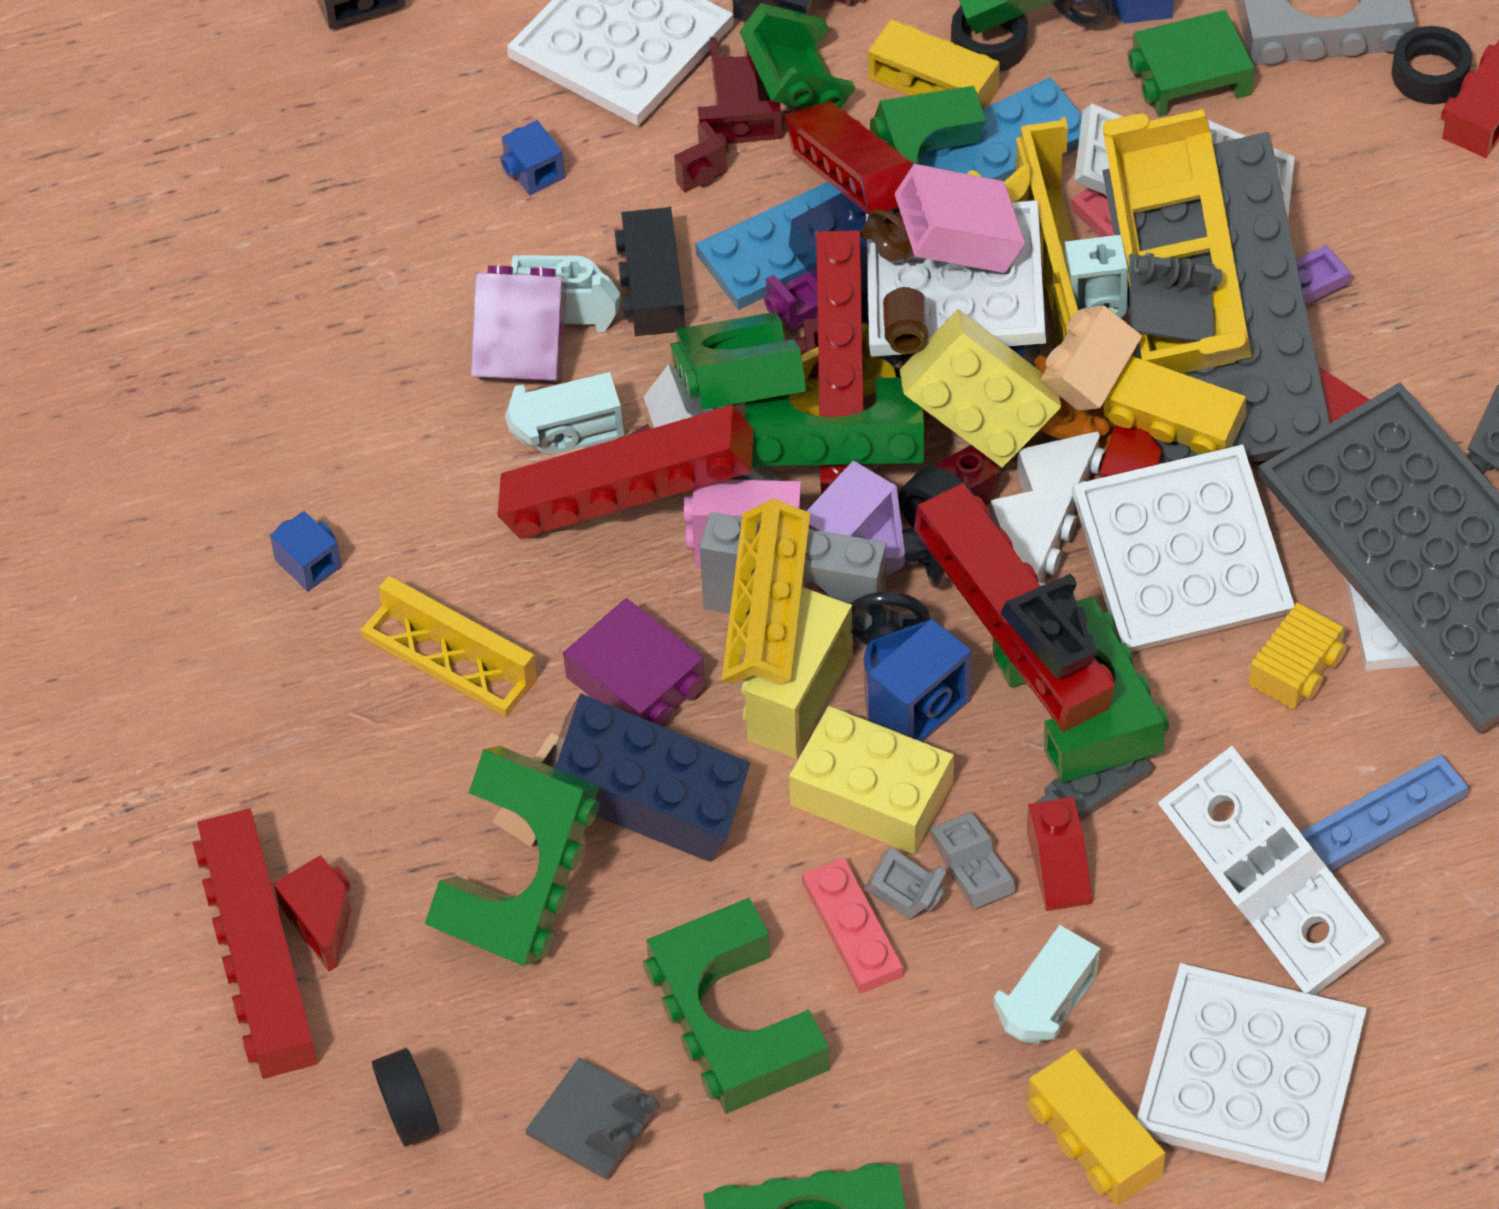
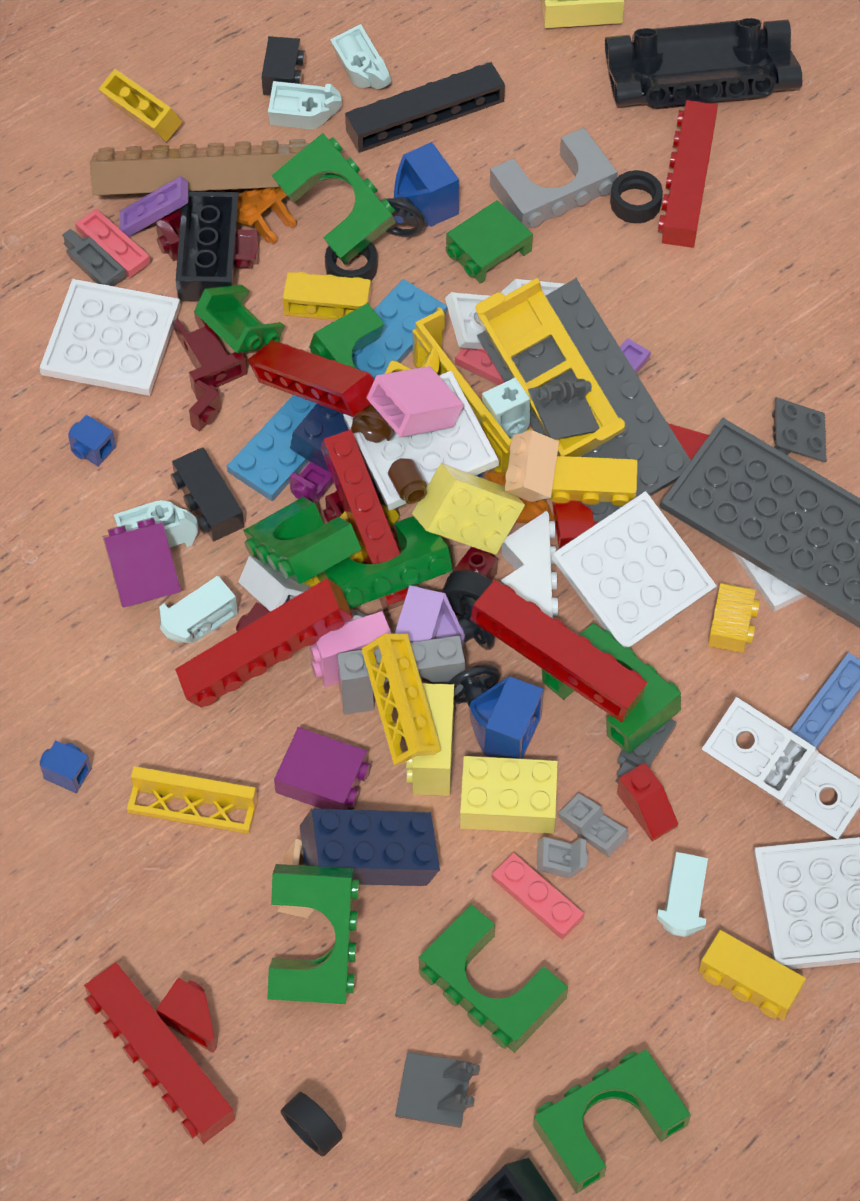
camera: 25 degrees left, 5 degrees up
(1053, 626) = (596, 658): black wing -> none

